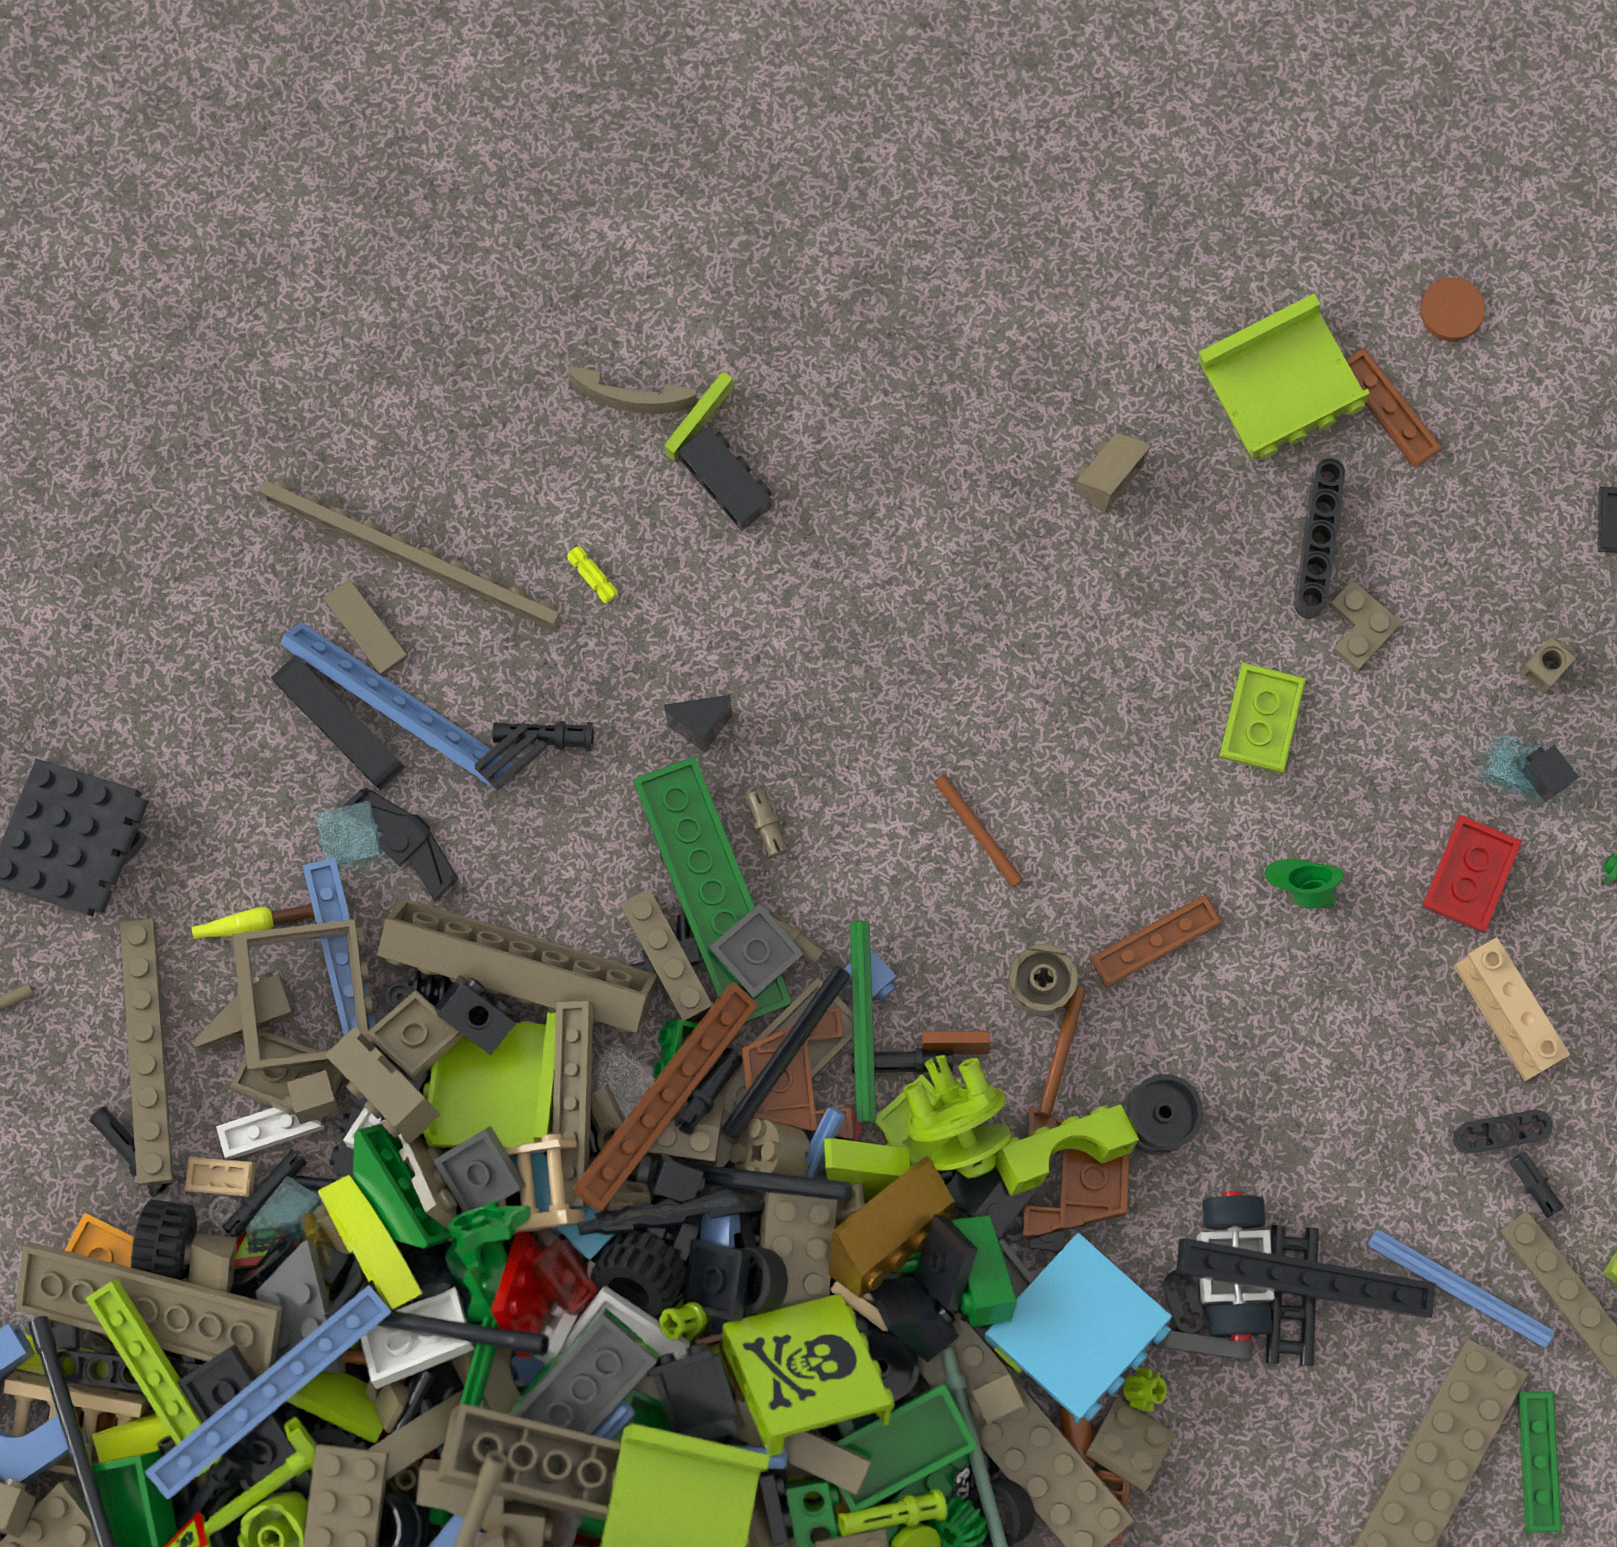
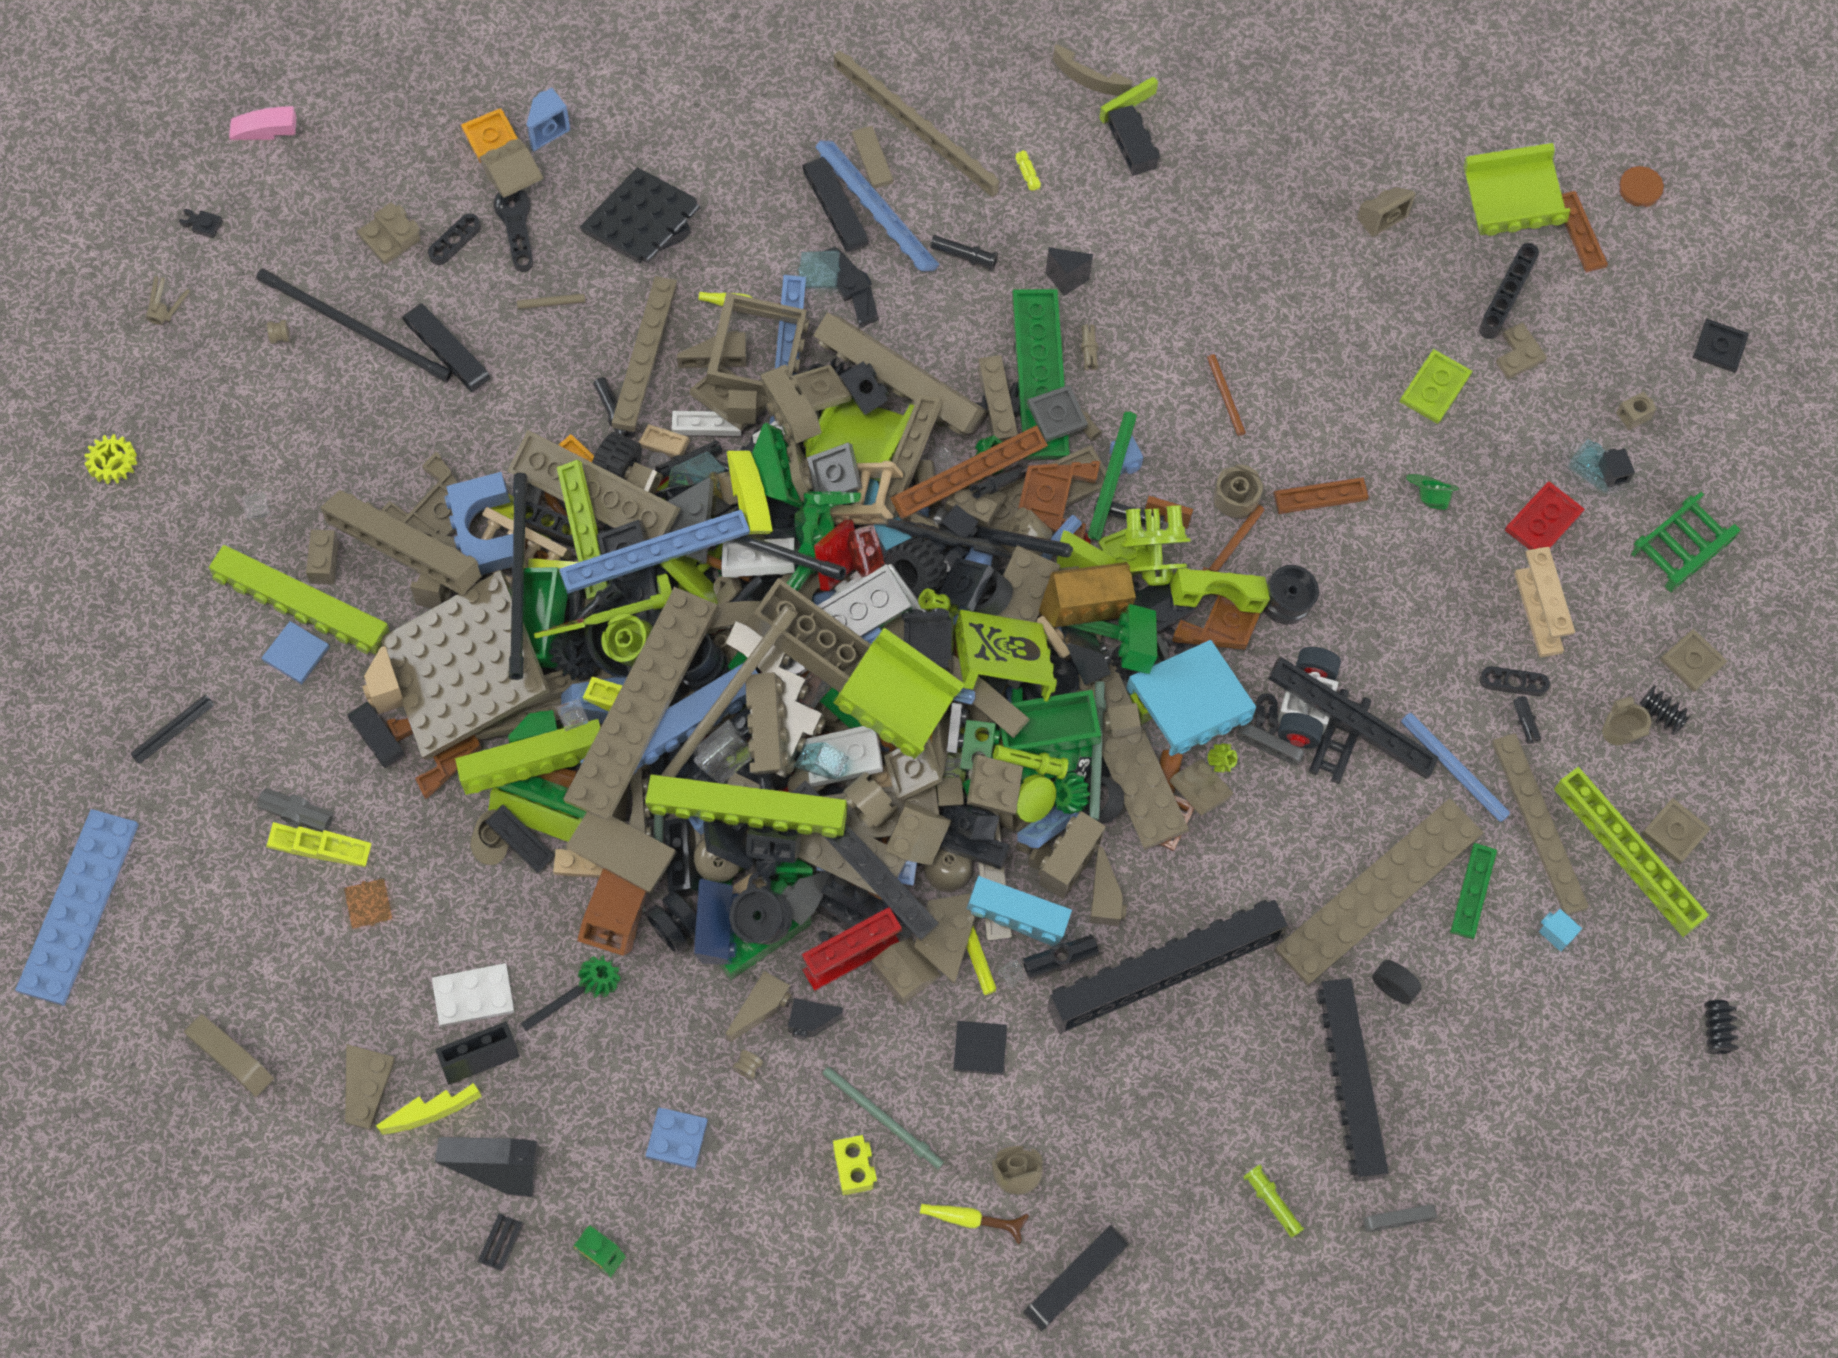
camera: 15 degrees right, 10 degrees down
(530, 738) = (935, 250): black tile -> none
(785, 1052) = (1055, 475): black axle -> none
(946, 1262) = (1118, 624): black plate -> none

